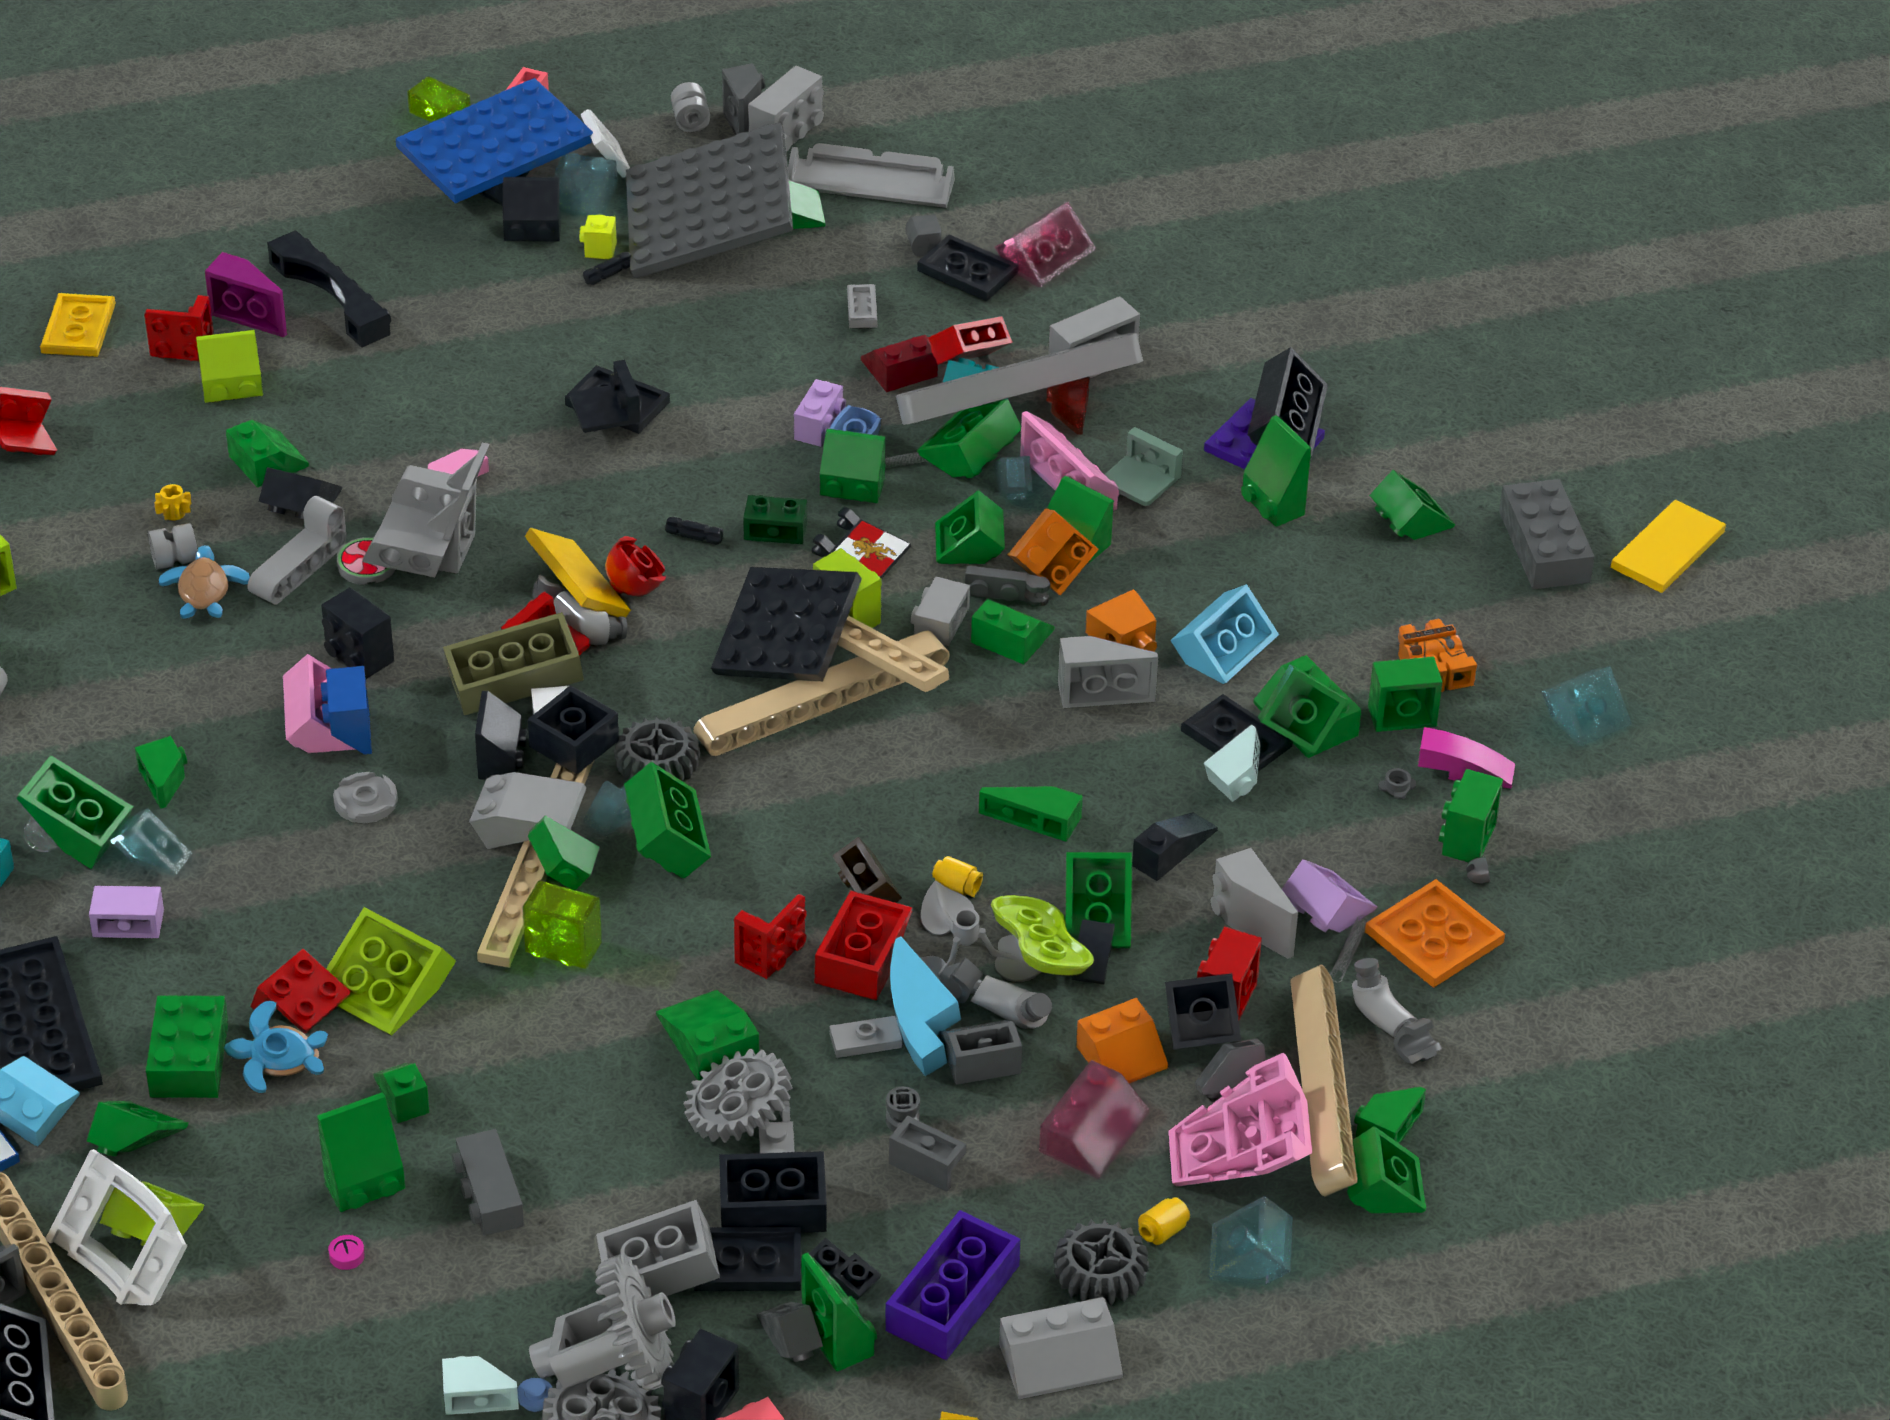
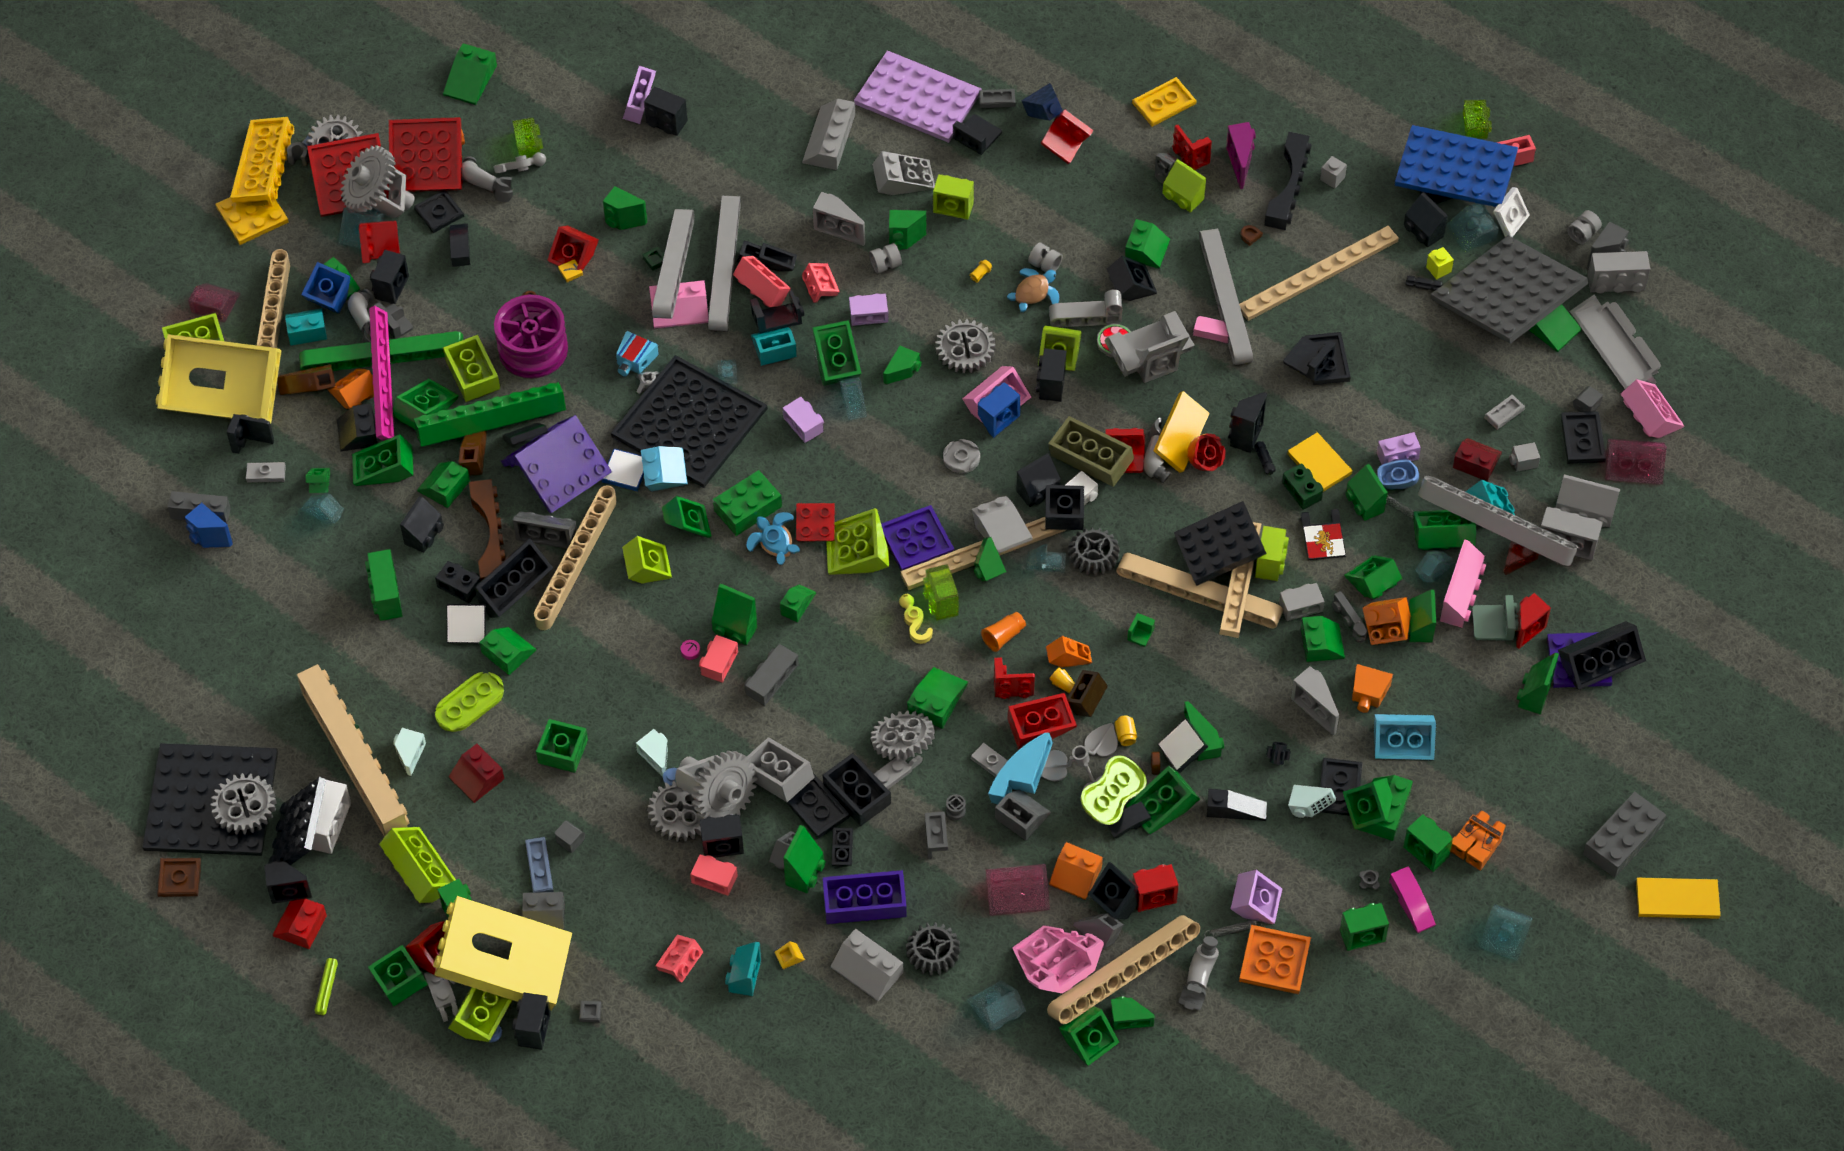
camera: 55 degrees right, 15 degrees up
(35, 744) = (868, 309): none -> lavender brick
(80, 1214) = (610, 579): white wedge -> none
(111, 613) = (983, 268): none -> yellow pin
(172, 502) = (1076, 235): yellow gear -> none
(183, 369) = (1163, 165): none -> dark grey slope
(207, 694) = (952, 349): none -> light grey gear
(303, 611) = (1062, 339): none -> lime slope
(360, 363) = (1250, 234): none -> reddish brown tile
(367, 245) = (1333, 172): none -> light grey brick
(400, 1224) = (719, 658): none -> coral brick
(423, 427) = (1226, 296): none -> light grey beam
(446, 907) = (916, 538): none -> dark purple plate
(486, 343) = (1318, 273): none -> tan plate
(562, 983) = (914, 617): none -> light yellow piece
(645, 498) = (1247, 422): none -> black slope
(667, 820) = (1044, 587): green brick -> none
(682, 908) = (1002, 631): none -> orange plant
(734, 483) = (1321, 460): none -> yellow tile
(783, 862) = (1068, 652): none -> orange slope
(820, 777) = (1141, 630): none -> green panel
(821, 893) = (1062, 680): none -> yellow cone
(942, 316) = (1525, 457): none -> light grey brick
(969, 340) = (1510, 478): red brick -> none
(991, 197) = (1651, 409): none -> bright pink slope
(1000, 997) = (1061, 798): piece -> none
(1033, 876) = (1155, 763): none -> reddish brown tile
(1039, 831) = (1182, 745): none -> white tile
(1058, 299) = (1588, 499): none -> light grey slope
(1137, 755) = (1278, 753): none -> black gear
(1163, 1220) = (981, 958): yellow brick -> none
(1178, 426) = (1532, 619): none -> red slope
(1254, 902) = (1218, 860): light grey slope -> none
(1409, 507) = (1586, 759): green slope -> none
(1478, 870) = (1338, 953): dark grey hinge -> none

